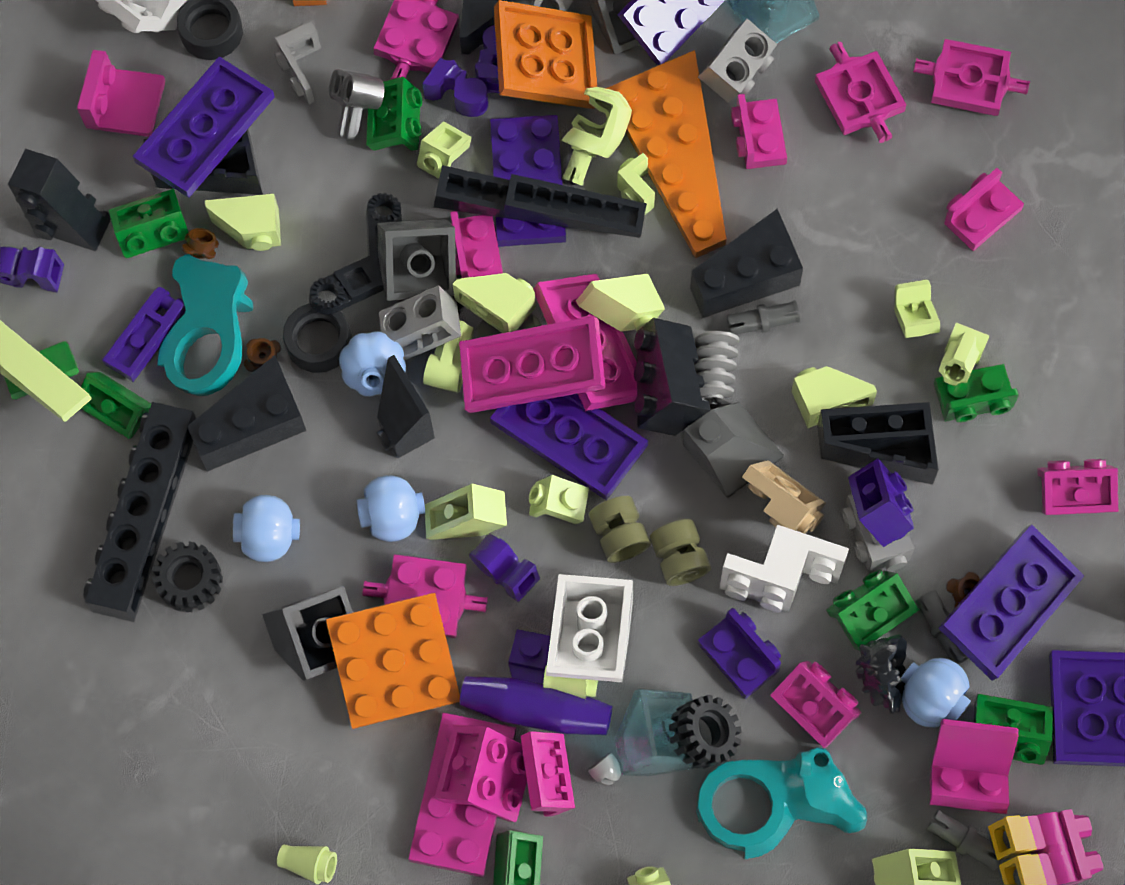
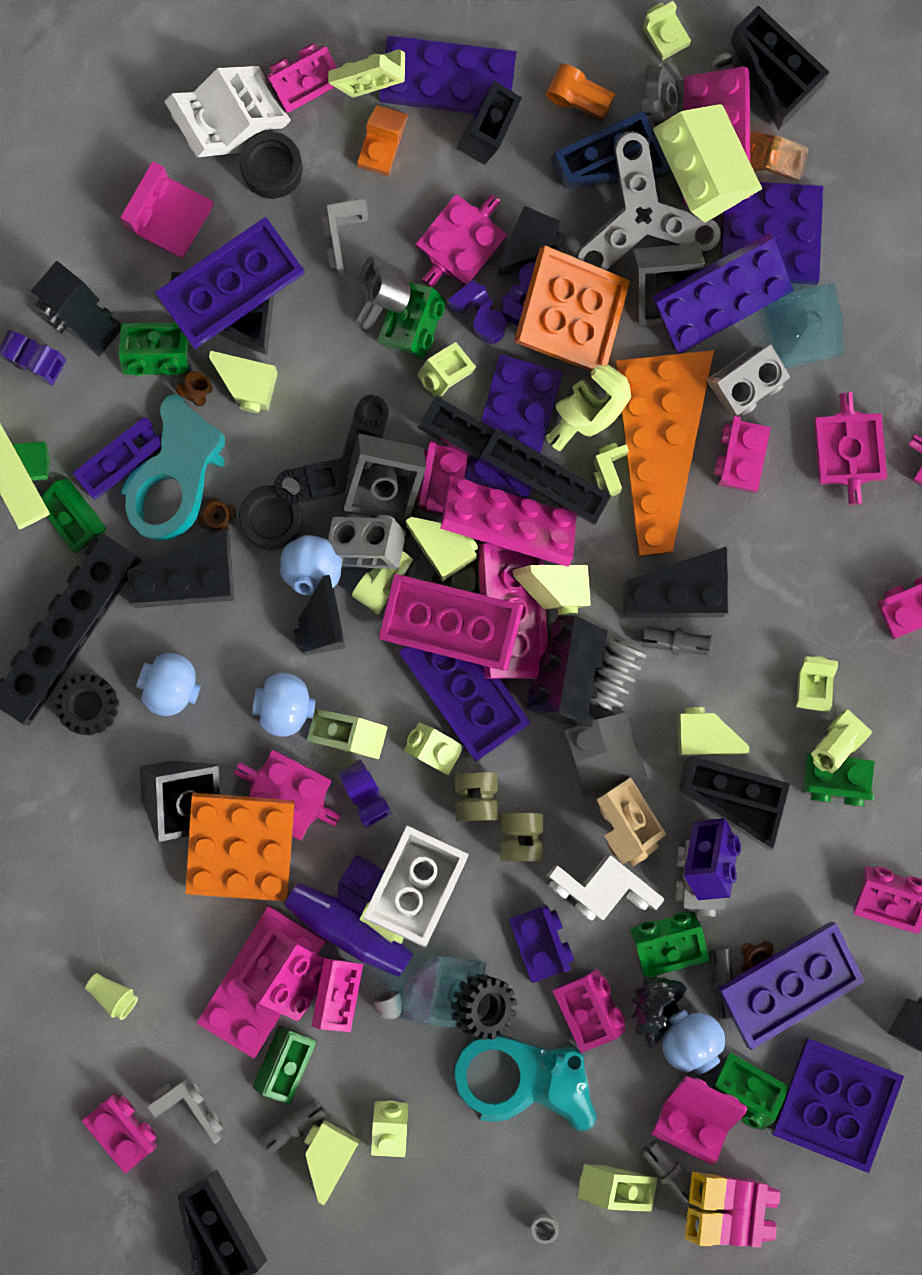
camera: 10 degrees right, 15 degrees up
(555, 255) = (509, 521): none -> dark pink plate

